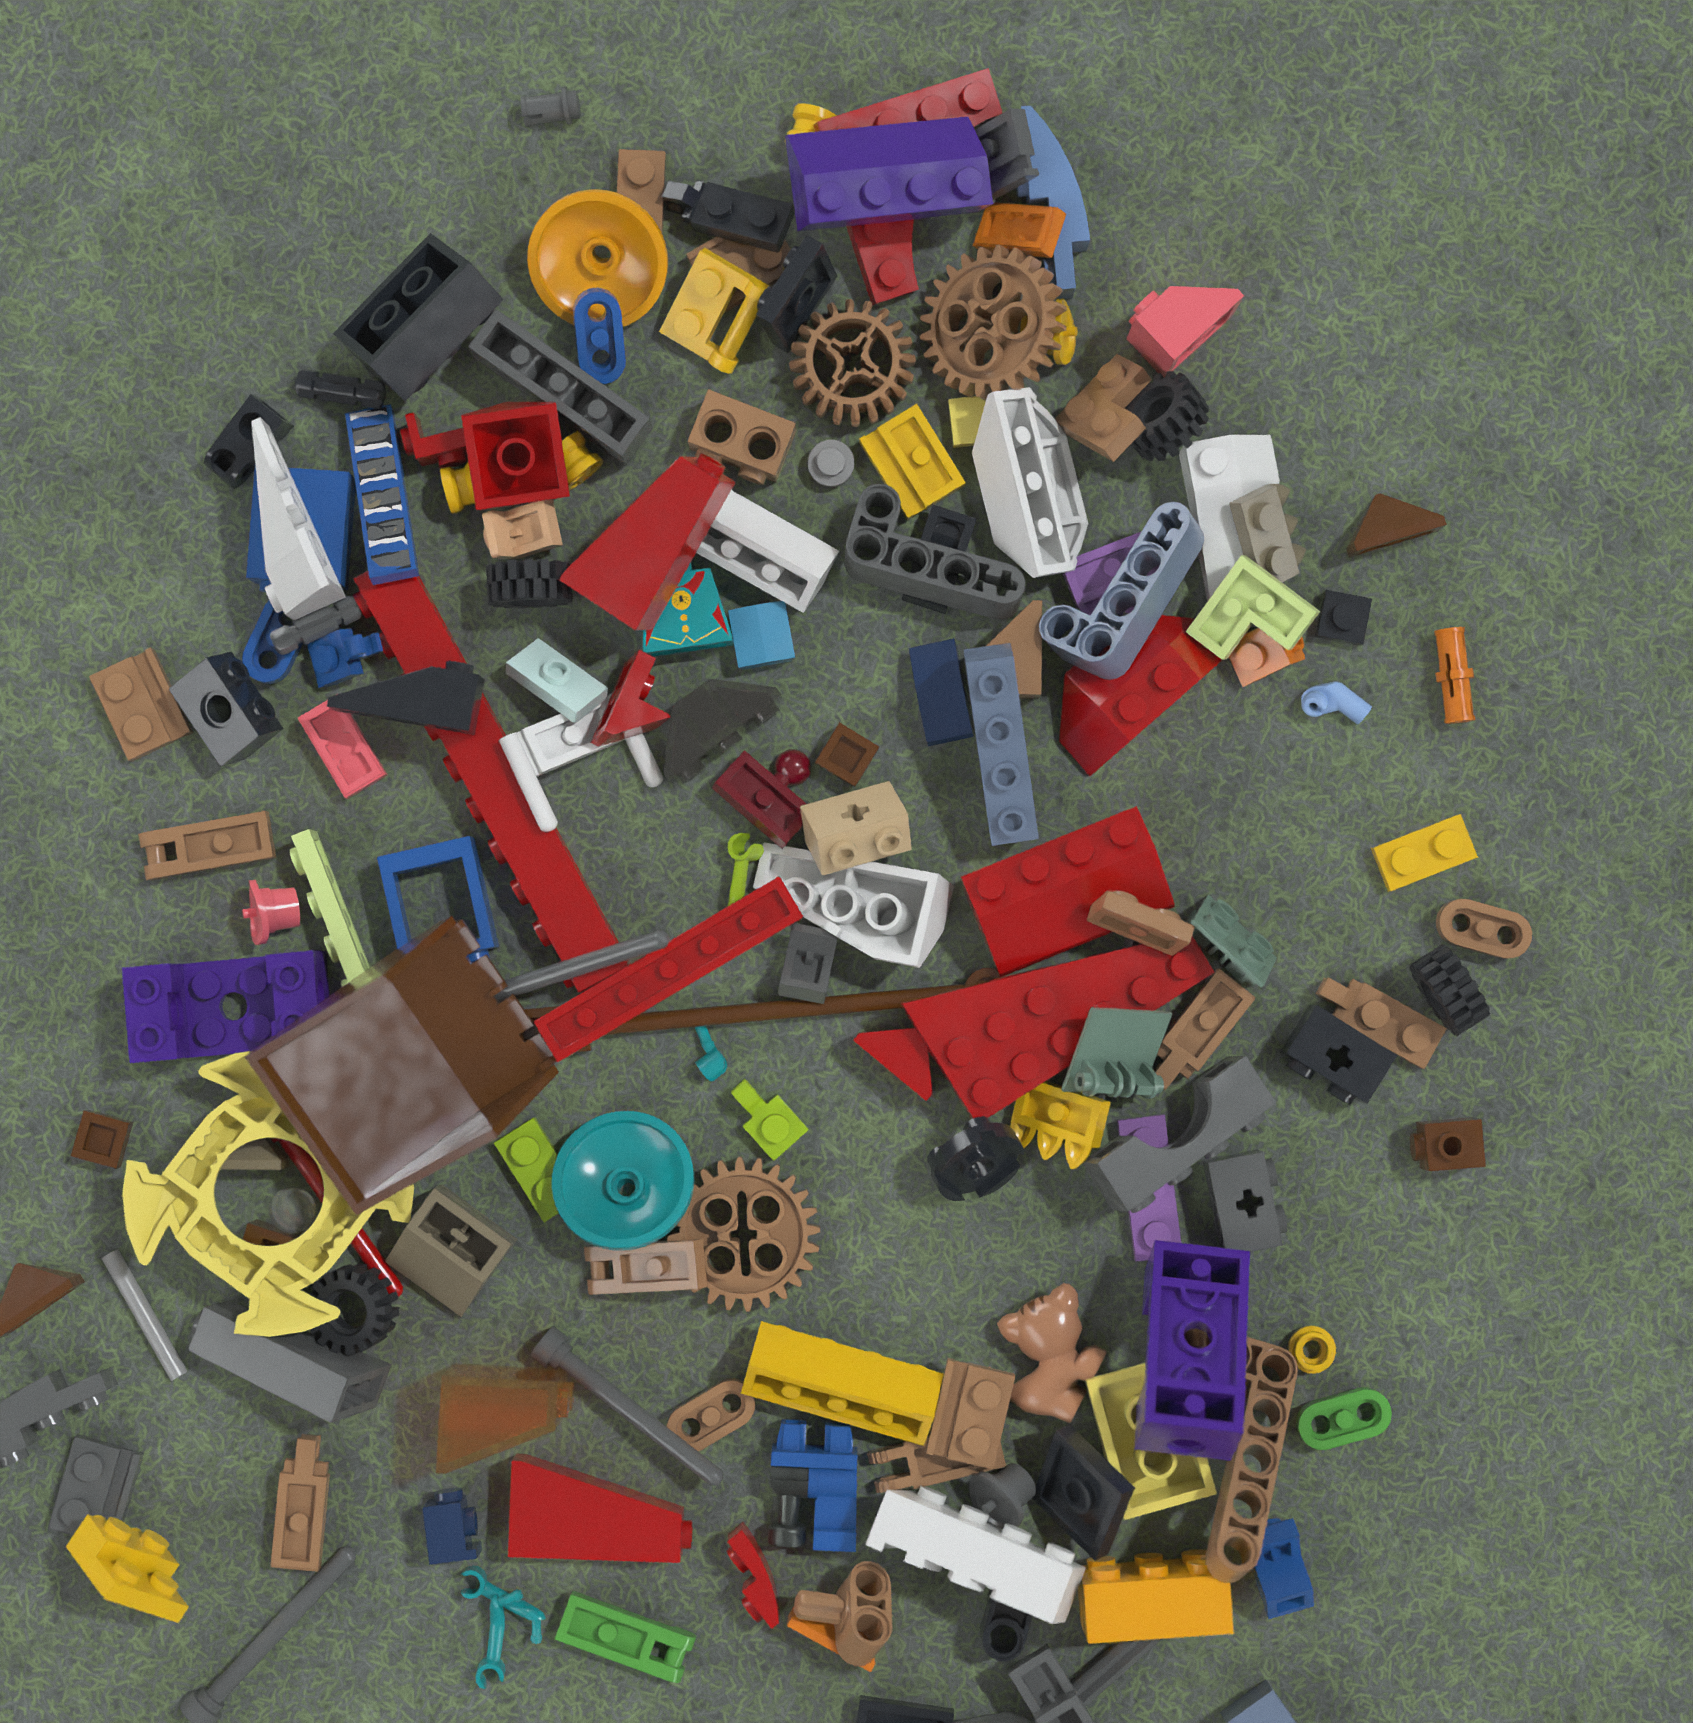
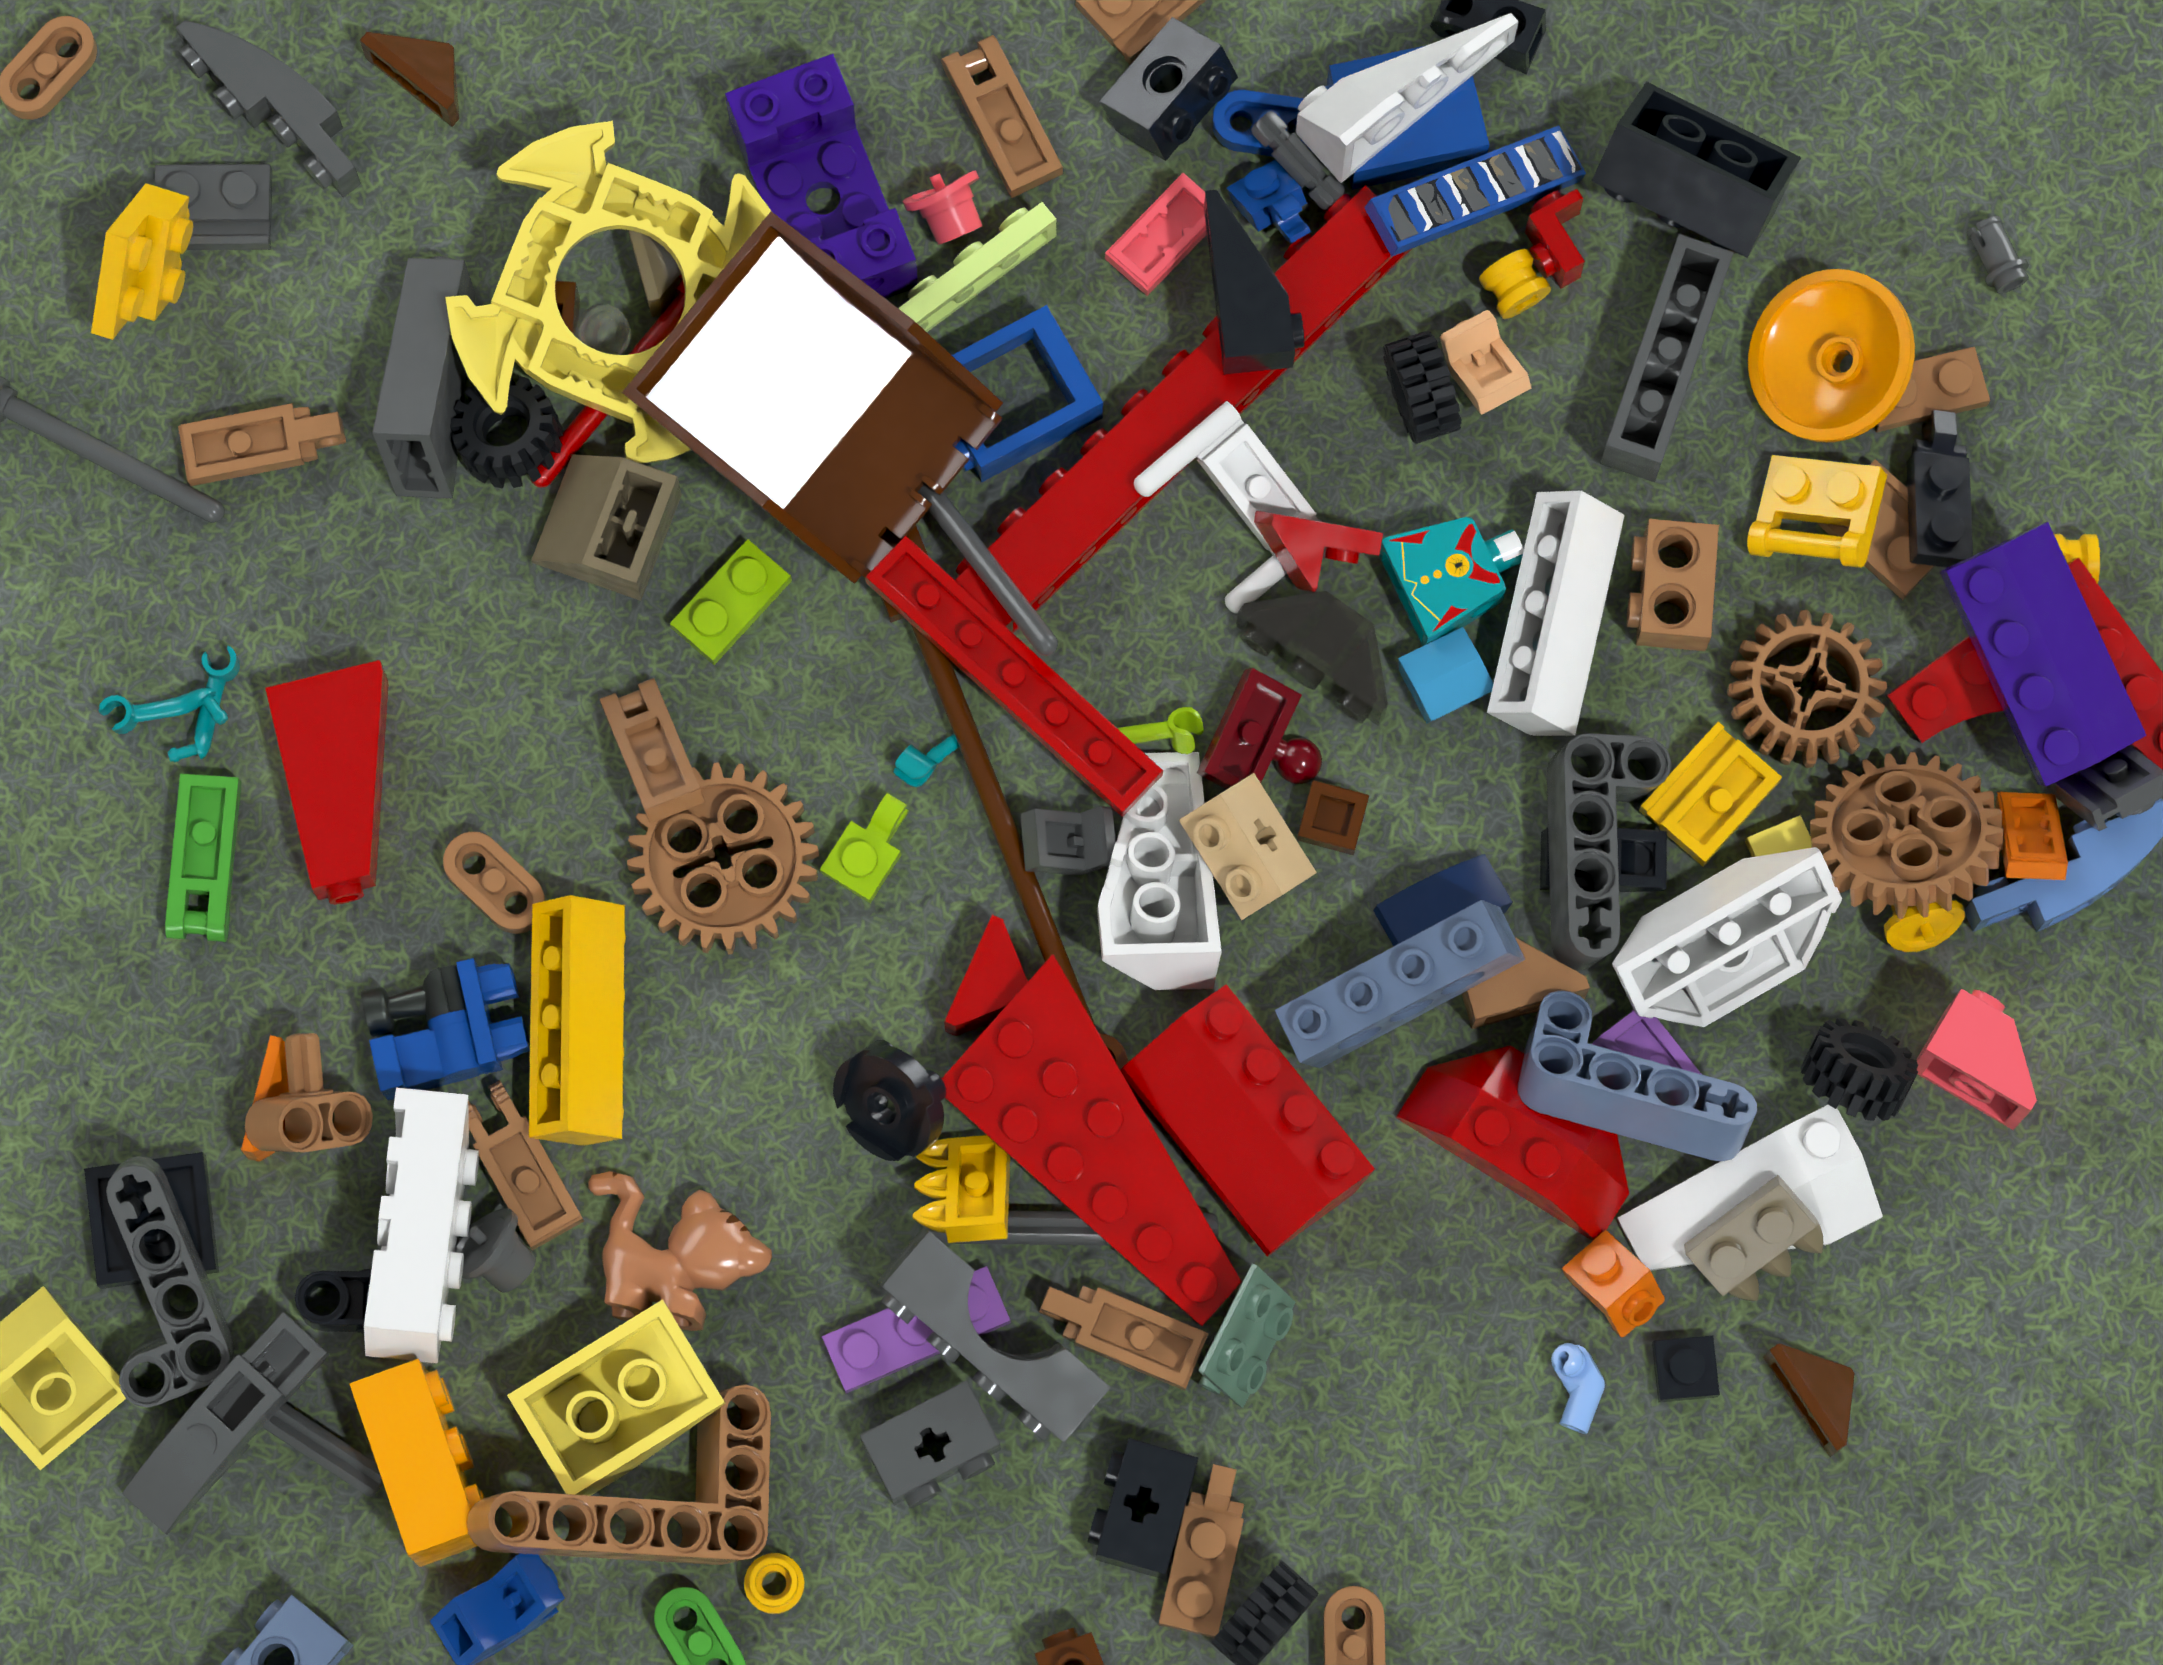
camera: 75 degrees right, 10 degrees down
(102, 1139) = (625, 95): reddish brown plate -> none
(144, 1314) = (432, 203): light grey bar -> none
(340, 389) = (1585, 111): black axle -> none
(450, 1526) = (280, 616): dark blue brick -> none
(497, 1409) = (435, 624): clear orange slope -> none
(515, 454) = (1569, 323): red slope -> none
(556, 680) = (1317, 452): light aqua plate -> none
(557, 1353) = (520, 679): dark grey piece -> none
(579, 460) = (1585, 399): yellow wheel -> none
(599, 334) = (1744, 382): blue plate -> none
(616, 1152) = (764, 671): teal dish -> none
(651, 544) = (1511, 505): red slope -> none
(759, 1589) = (302, 1000): red slope -> none
(797, 292) = (1868, 593): black plate -> none
(831, 463) = (1678, 699): light grey plate -> none
(970, 1413) = (582, 1182): medium nougat plate -> none
(1082, 1492) = (526, 1338): black plate -> none
(1098, 412) = (1838, 992): medium nougat plate -> none
(1118, 1053) = (1069, 1231): sand green hinge -> none
(1149, 926) = (1237, 1185): medium nougat plate -> none
(1192, 1394) = (684, 1414): dark purple plate -> none
(1248, 598) = (1669, 1238): yellowish green plate -> none
(1424, 852) = (1426, 1550): yellow plate -> none
(1454, 675) = (1656, 1523): orange pin -> none

